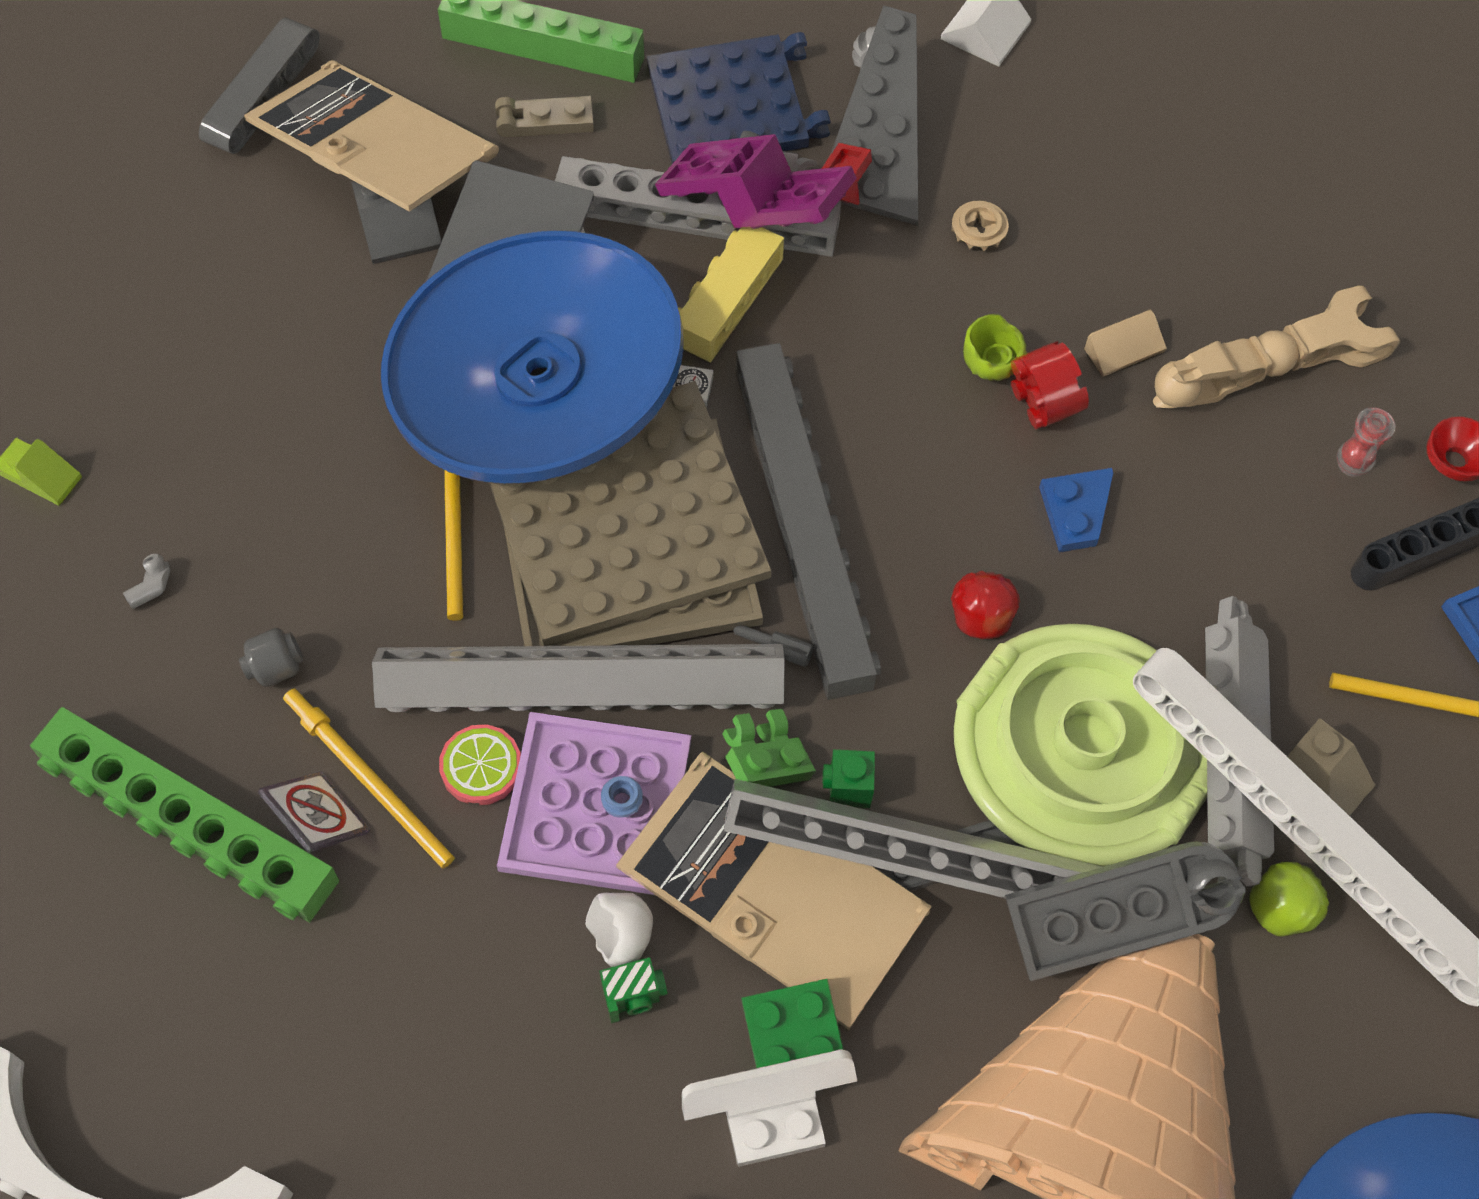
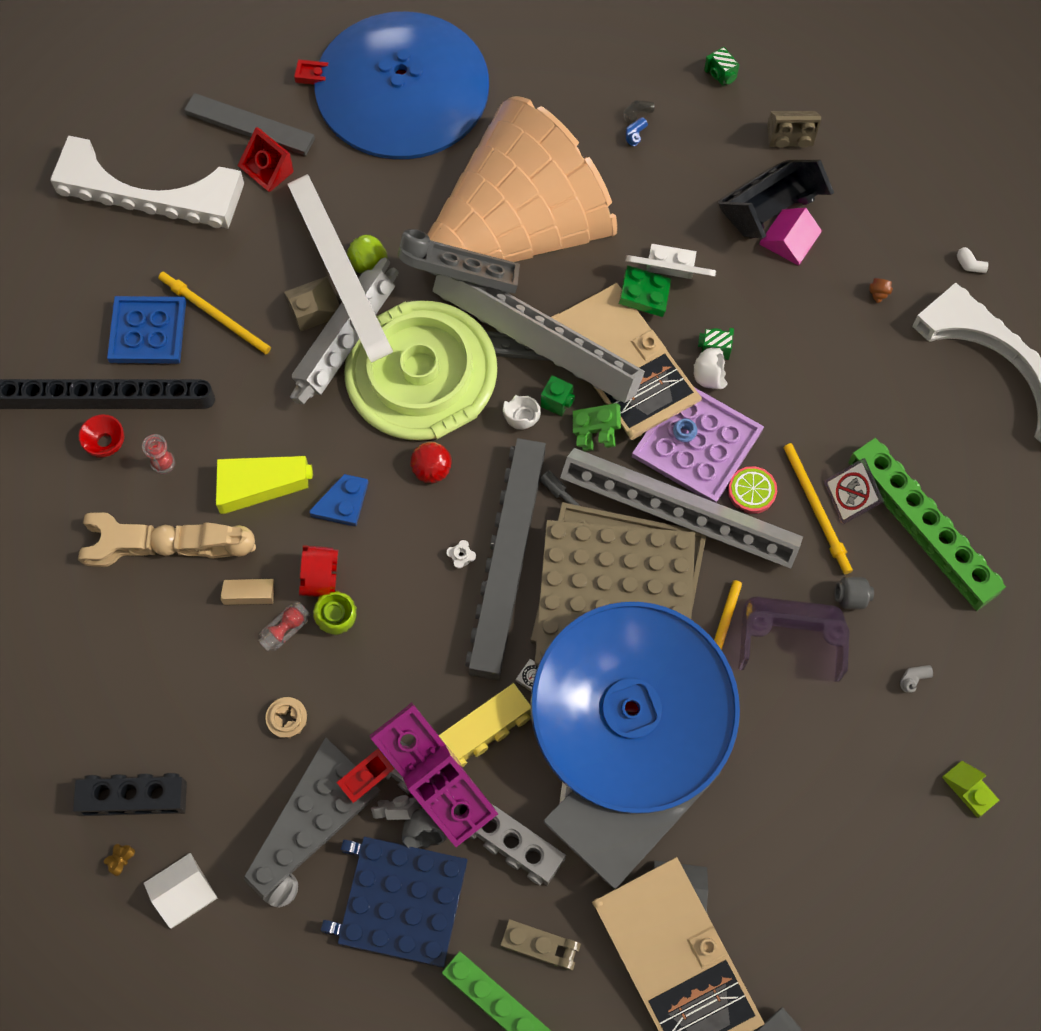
camera: 155 degrees left, 5 degrees up
(350, 586) = (763, 613): none -> clear purple windscreen
(870, 507) = (460, 561): none -> white plate
(893, 729) = (521, 412): none -> white hair
(1056, 299) = (292, 618): none -> clear piece
(1074, 23) = (119, 858): none -> pearl gold piece
(1104, 80) = (171, 801): none -> black brick
(1212, 479) = (257, 480): none -> neon yellow slope

